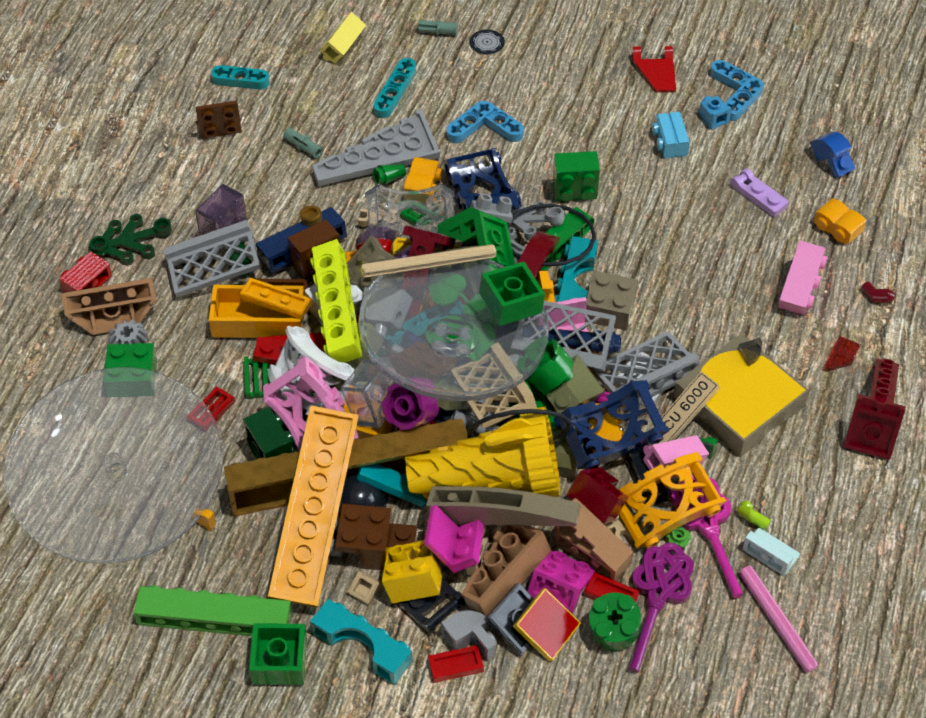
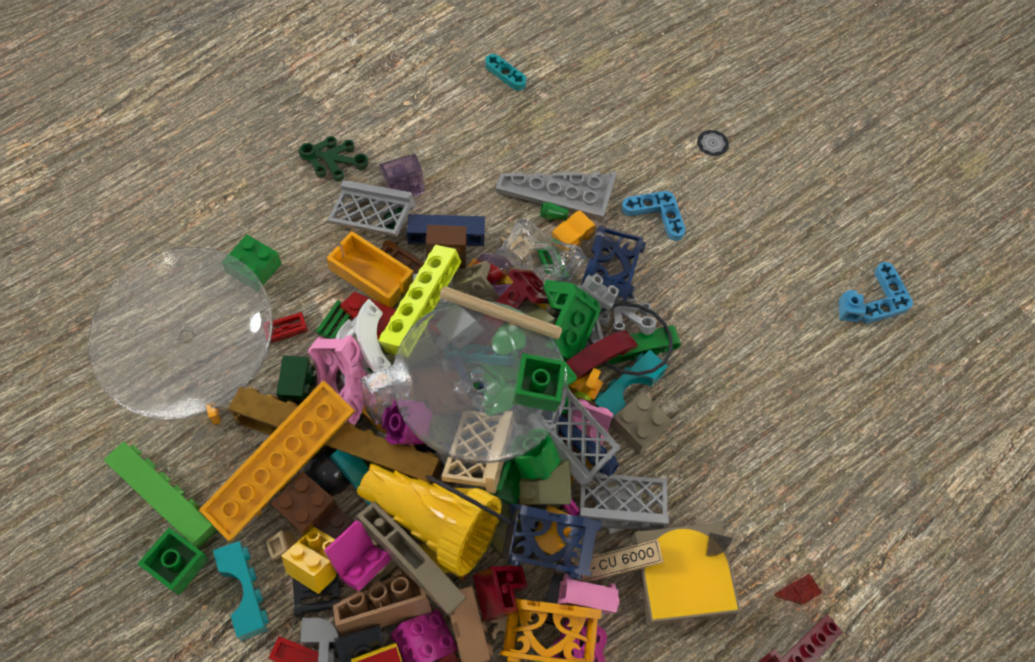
camera: 30 degrees right, 10 degrees up
(87, 273) = (279, 170): red brick -> none
(104, 306) = (274, 203): medium nougat wedge -> none
(128, 333) = (271, 234): light grey gear -> none
(218, 119) = (461, 98): reddish brown bracket -> none
(275, 298) = (384, 269): light orange tile -> none
(310, 215) = (462, 215): pearl gold tile -> none
(312, 148) = (510, 150): sand green pin -> none
(342, 38) = (601, 80): light yellow brick -> none
(397, 88) = (612, 143): teal beam -> none
(438, 27) = (682, 110): sand green axle -> none
(575, 176) = (691, 299): green brick -> none
(657, 72) = (830, 243): red flag -> none
(671, 135) = (799, 306): medium azure brick -> none
(710, 444) = (625, 602): green tile -> none
(759, 193) = (837, 401): lavender plate -> none
(803, 278) = (813, 503): bright pink wedge -> none
(835, 149) = (929, 402): blue brick -> none
(840, 221) = (886, 469): light orange brick -> none
(877, 295) = (871, 557): dark red arm -> none

